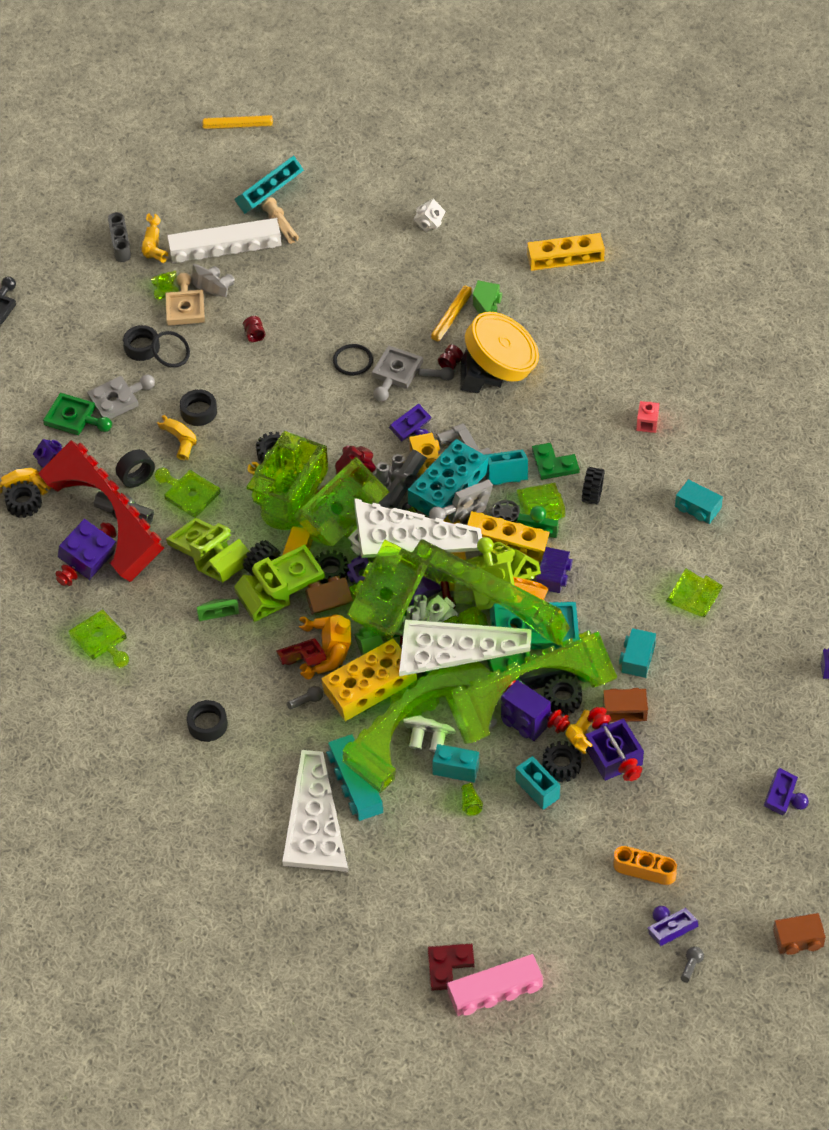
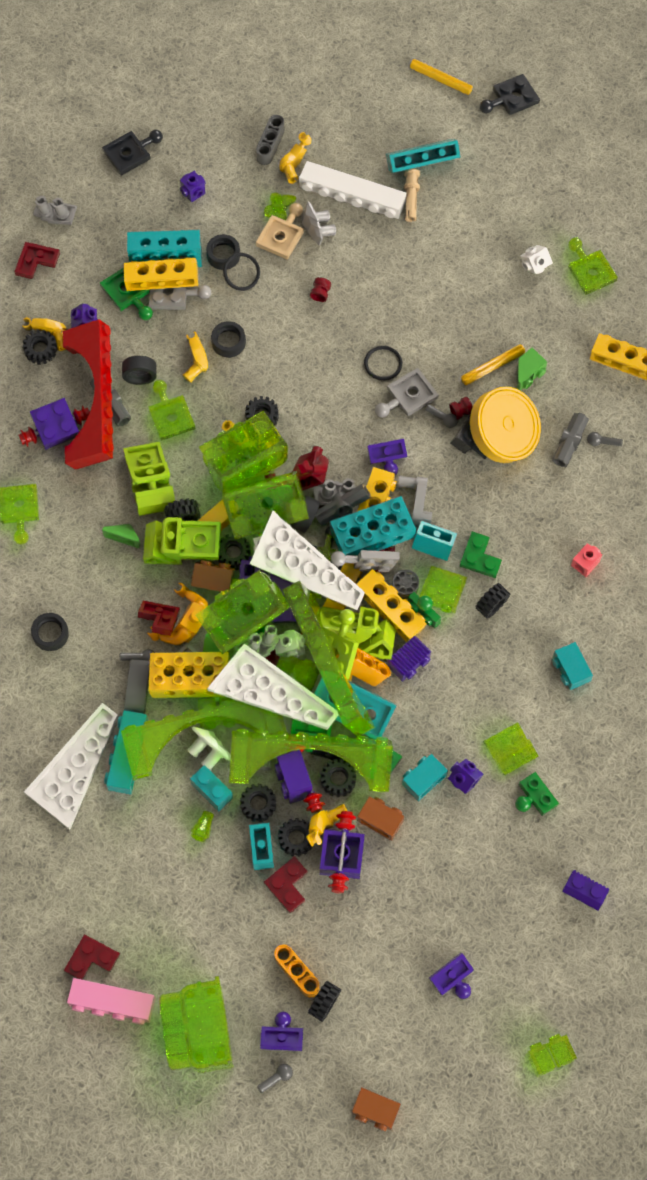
camera: 30 degrees right, 15 degrees up
(74, 304) = (192, 186): none -> dark purple brick
(99, 355) = (164, 243): none -> teal brick
(99, 382) = (169, 279): none -> yellow brick
(323, 106) = (511, 102): none -> black plate
(323, 718) = (137, 686): none -> dark grey beam
(473, 200) = (595, 261): none -> clear neon green plate
(502, 743) = (252, 792): none -> black tyre
(563, 335) = (570, 439): none -> dark grey piece
(577, 806) = (282, 884): none -> dark red plate
(583, 326) = (596, 439): none -> dark grey bar
(594, 956) = (196, 1028): none -> clear neon green brick
(672, 639) = (465, 775): none -> dark purple brick
(689, 872) = (324, 1001): none -> black tyre
(743, 616) = (537, 794): none -> green plate

